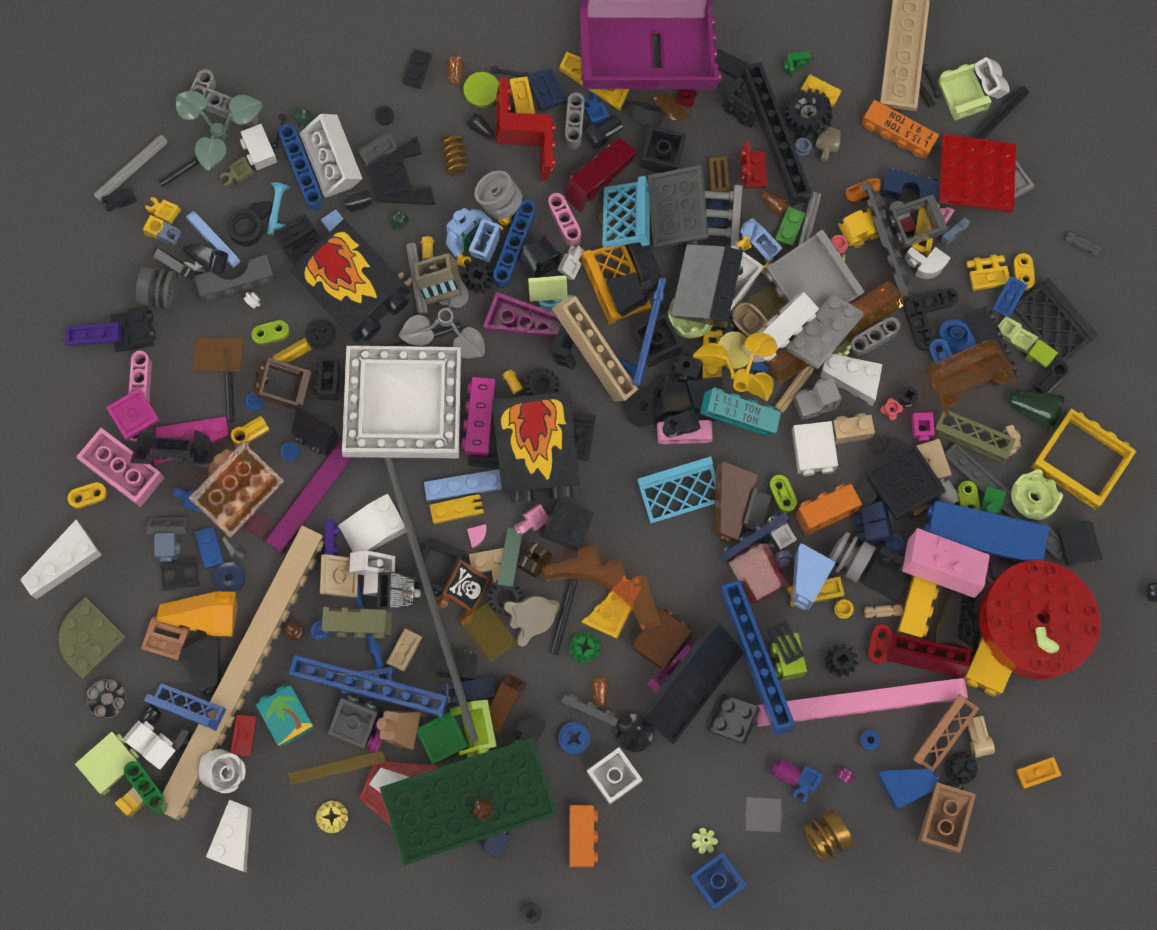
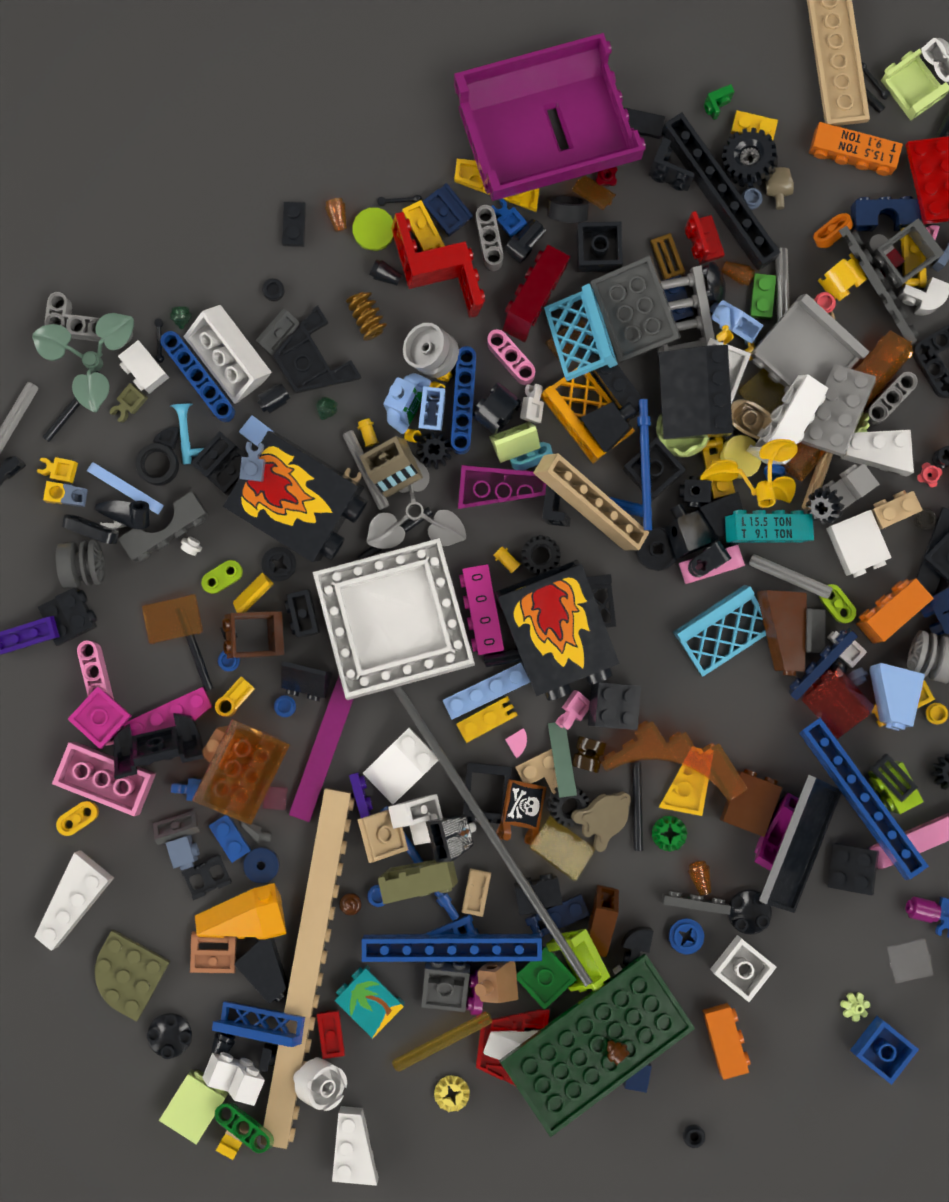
camera: 15 degrees left, 10 degrees up
(323, 243) = (252, 467): none -> sand blue plate
(748, 459) = (790, 576): none -> light grey axle
(751, 203) = (716, 282): none -> black dish
(792, 406) = (829, 510): none -> black gear

